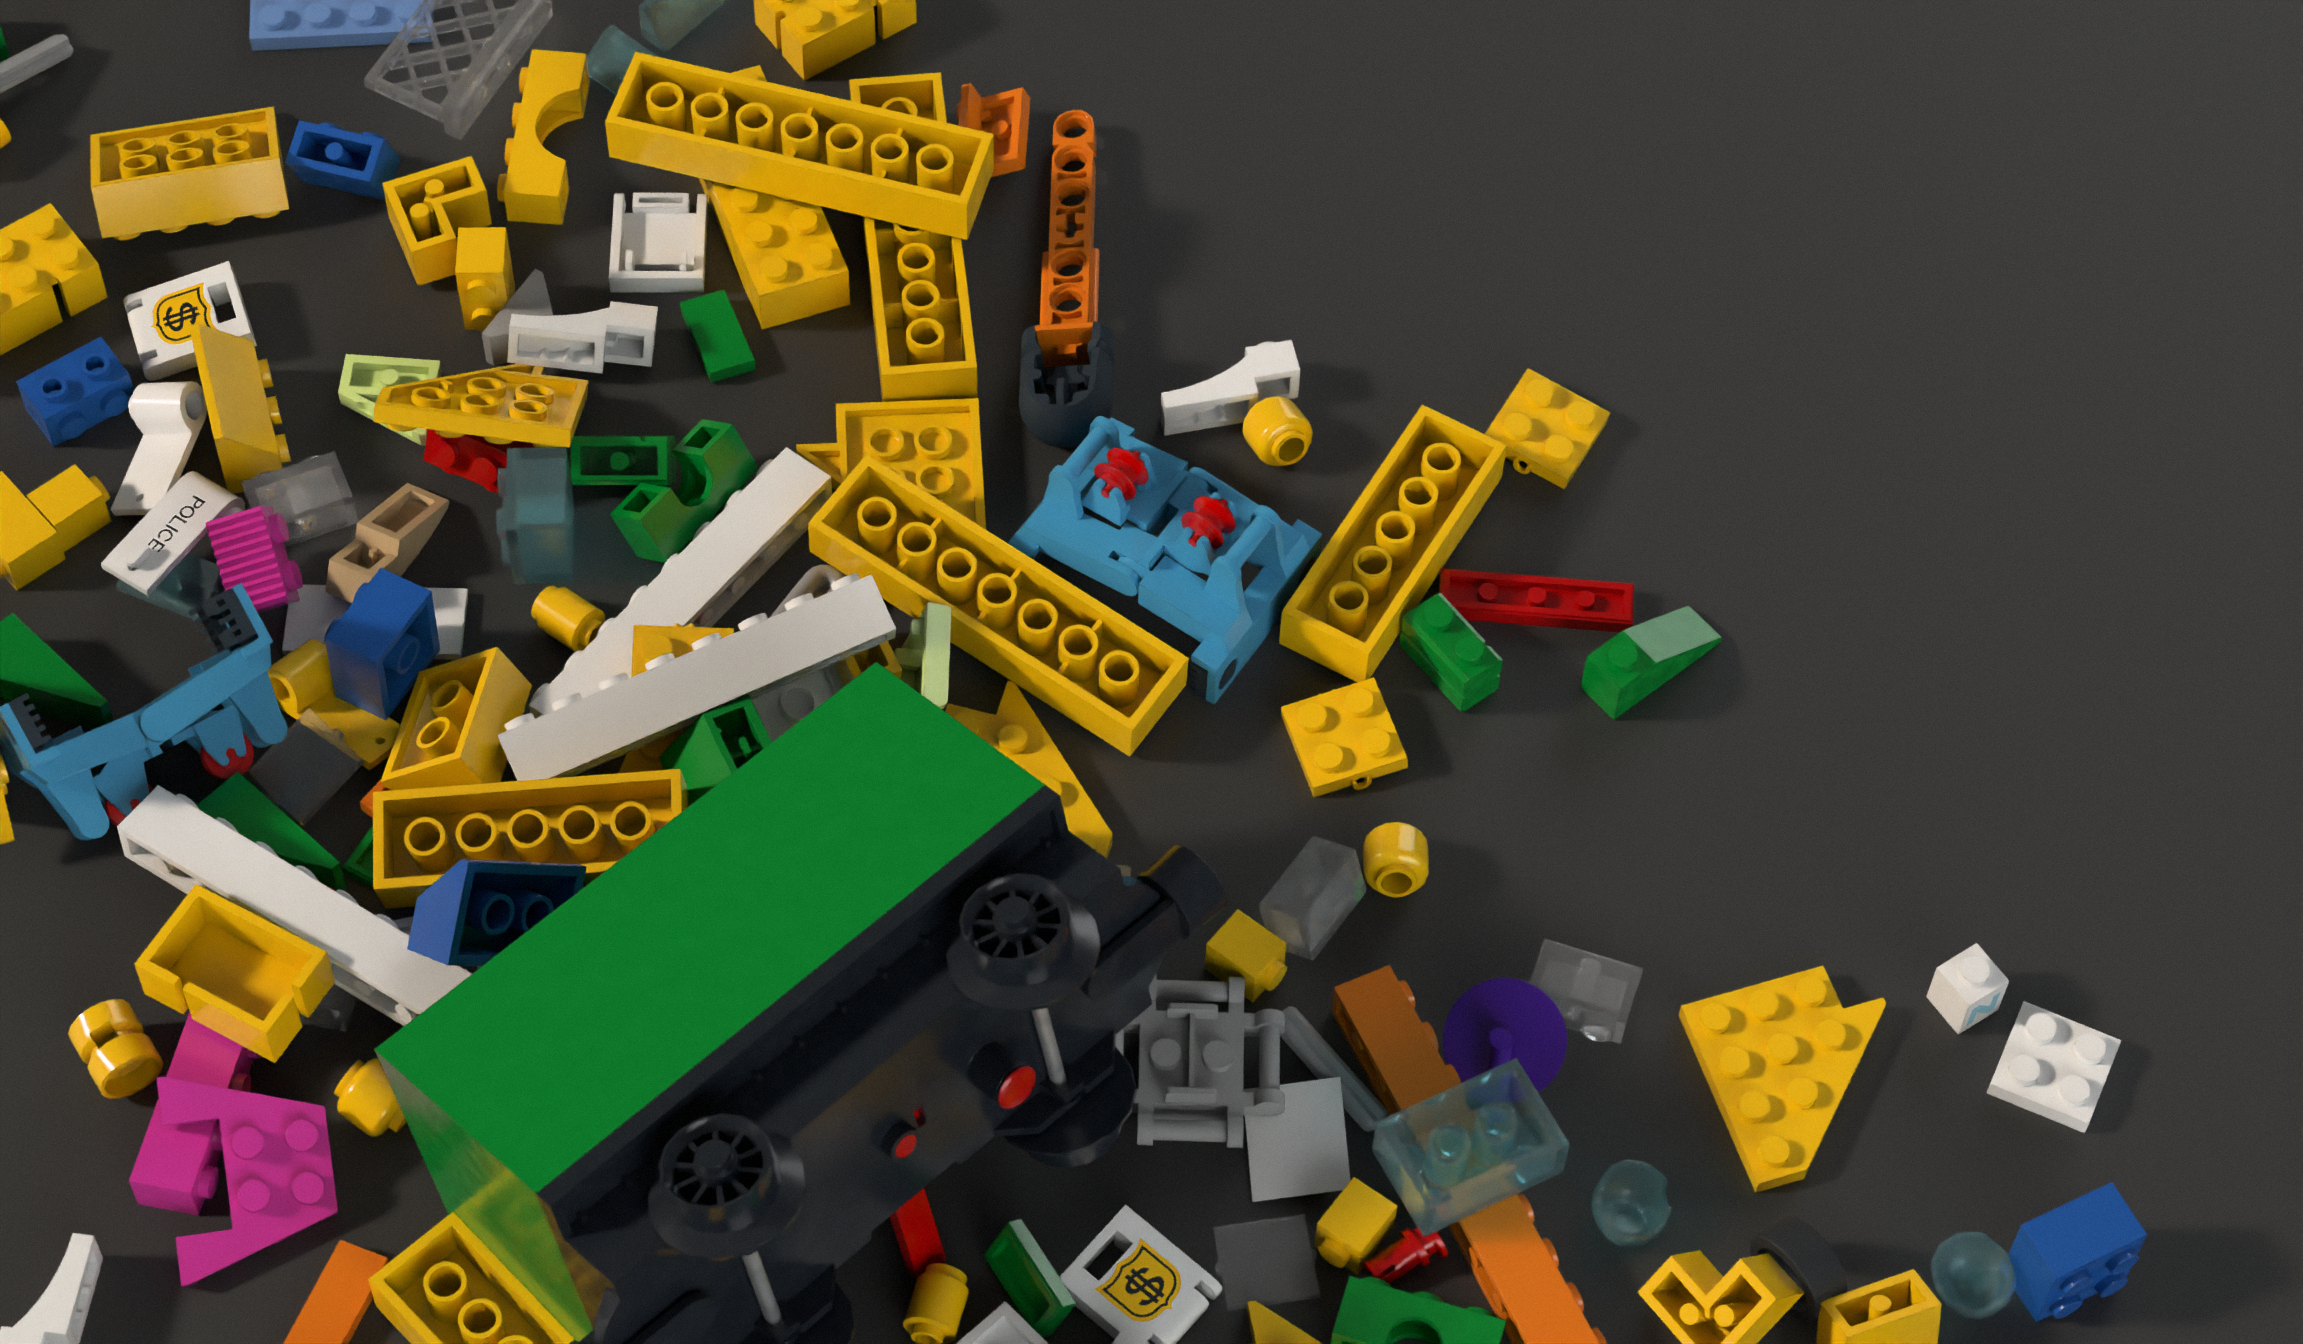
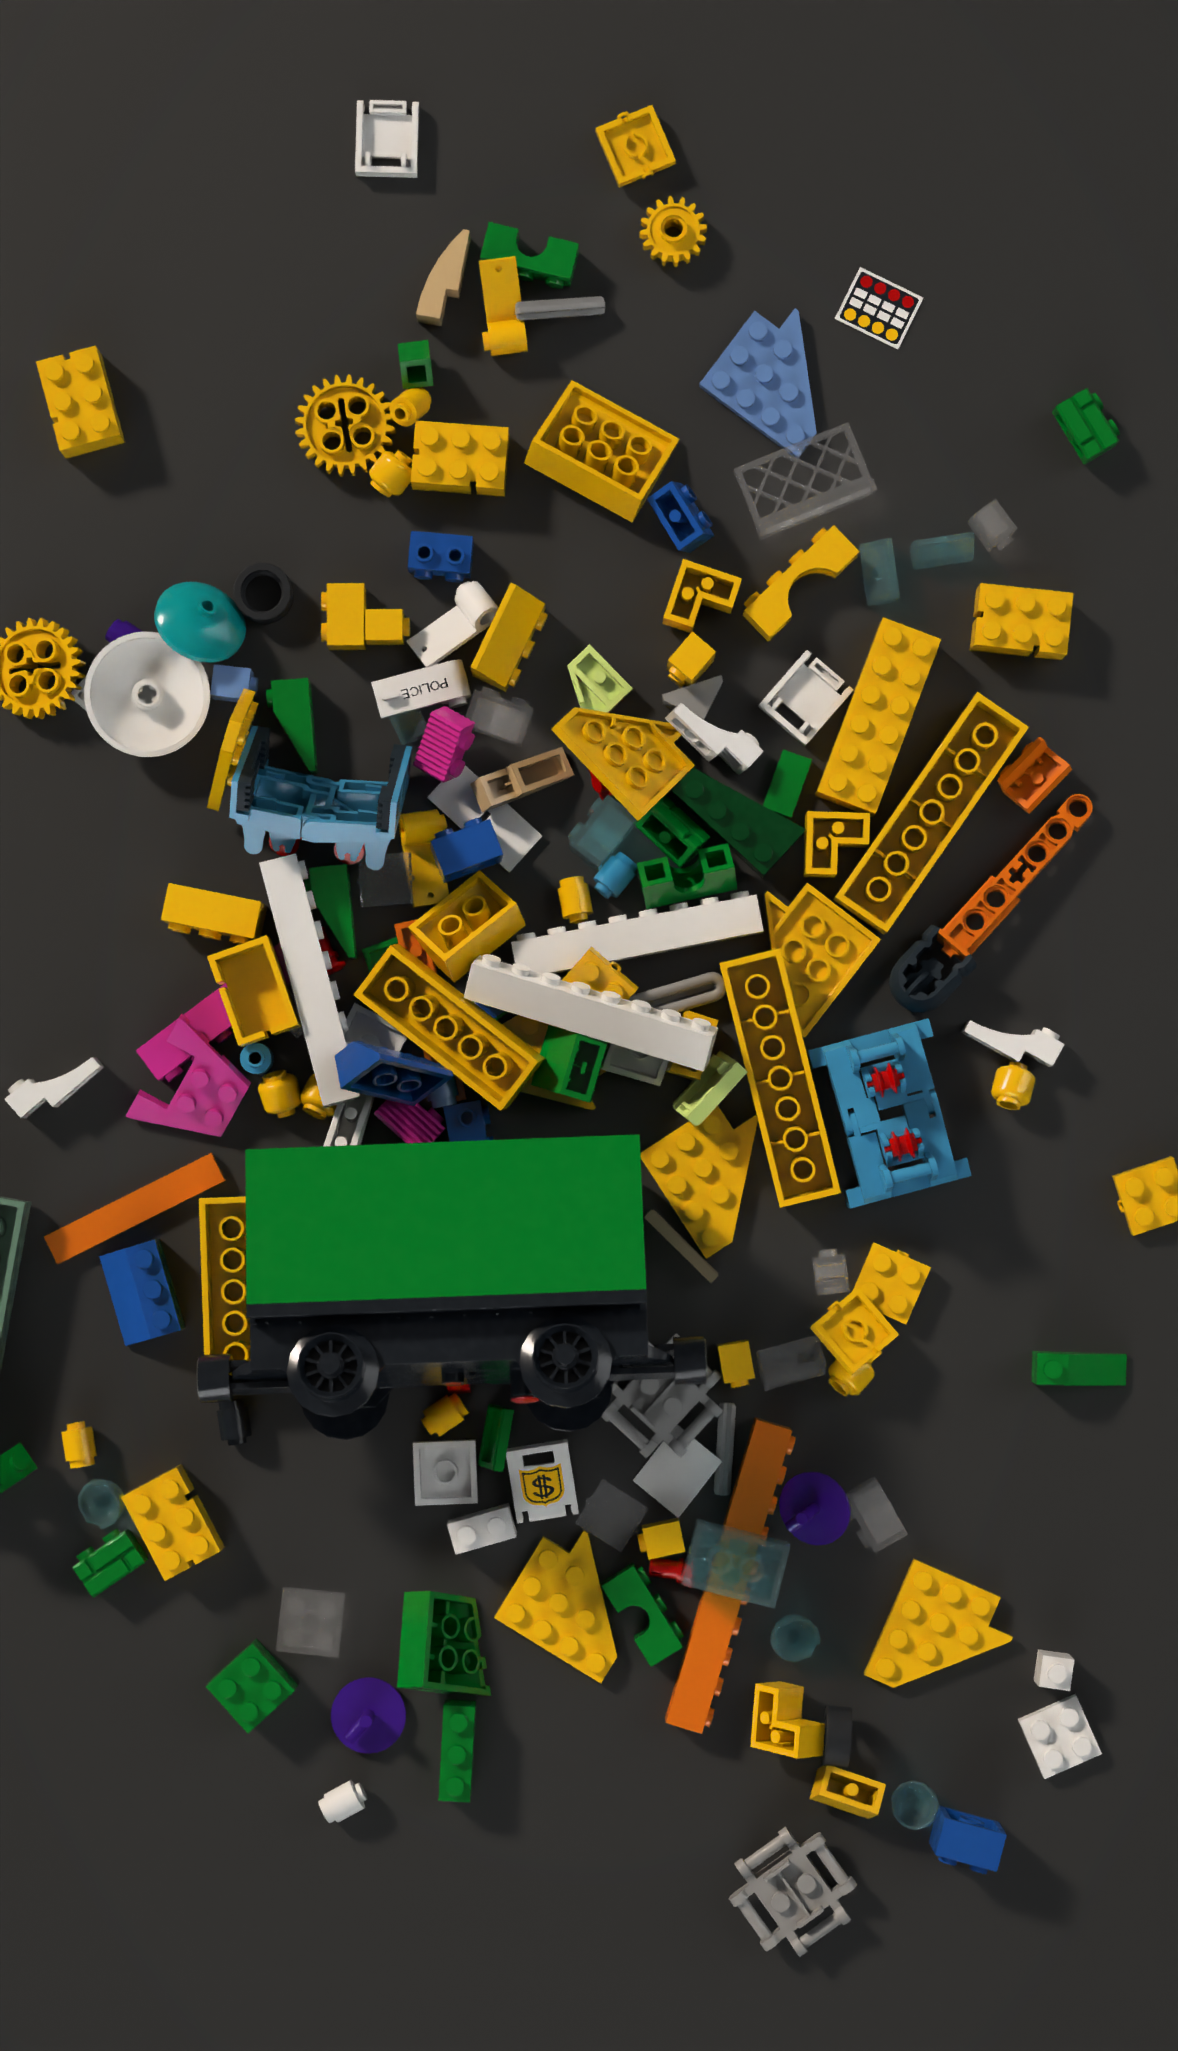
camera: 45 degrees right, 30 degrees up
(92, 945) = (213, 914): none -> yellow piece
(115, 1048) = (178, 979): yellow wheel -> none
(164, 312) = (523, 552): white container -> none
(307, 1073) = (264, 1065): none -> dark azure brick
(596, 560) = (615, 875): none -> dark azure brick
(675, 394) = (748, 827): none -> dark green wedge
(800, 145) = (906, 726): yellow brick -> none
(817, 338) = (826, 833): none -> yellow brick
(1263, 774) = (830, 1272): none -> clear brick
(1352, 796) = (854, 1331): none -> yellow plate
(1392, 544) = (1008, 1204): yellow brick -> none
(1450, 652) = (980, 1285): green brick -> none
(1539, 600) = (1054, 1287): red tile -> none

